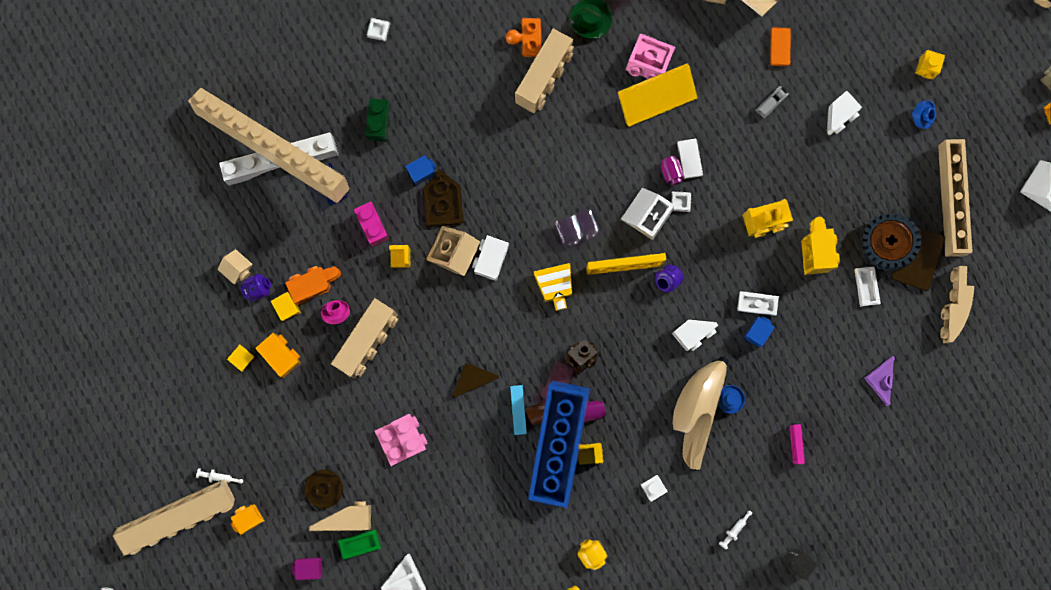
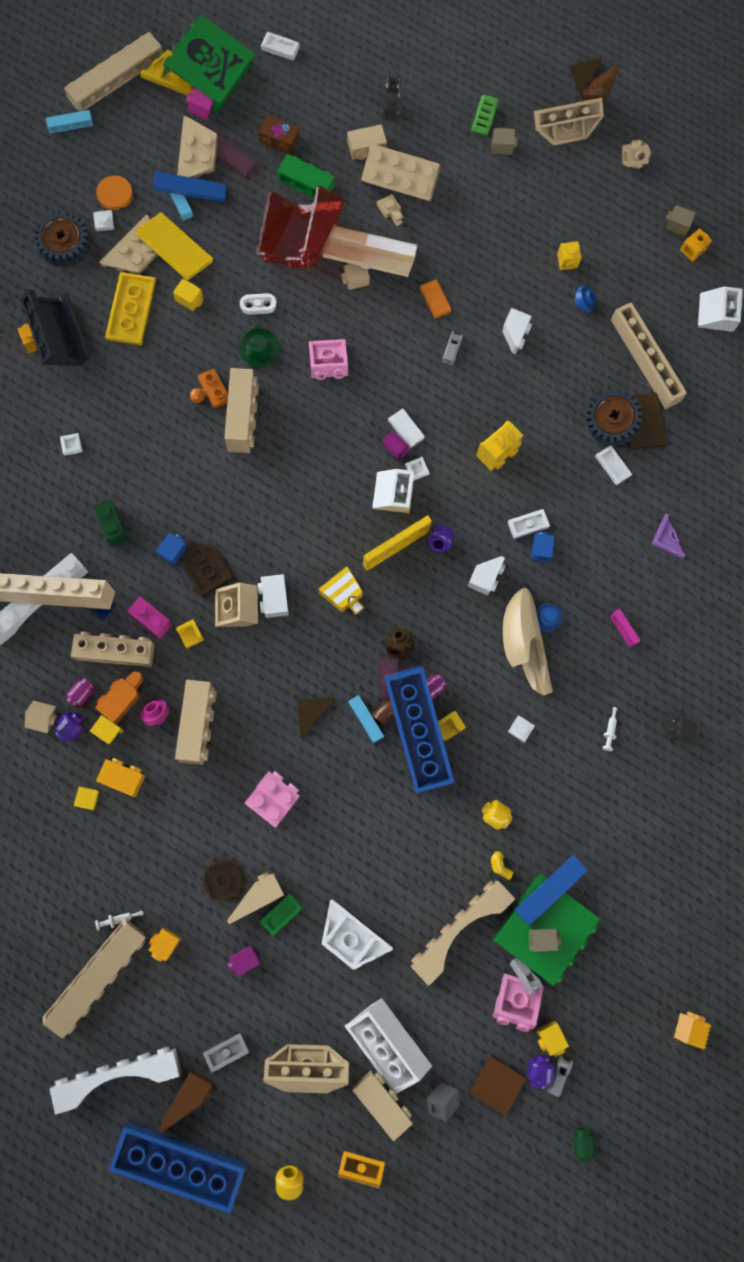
camera: 35 degrees left, 5 degrees down
(279, 261) = (80, 692): none -> magenta brick
(326, 238) = (113, 650): none -> tan brick
(577, 227) = (337, 533): clear purple brick -> none
(657, 94) = (350, 385): yellow tile -> none
(819, 248) = (557, 451): yellow hinge -> none
(957, 312) = (700, 450): tan slope -> none

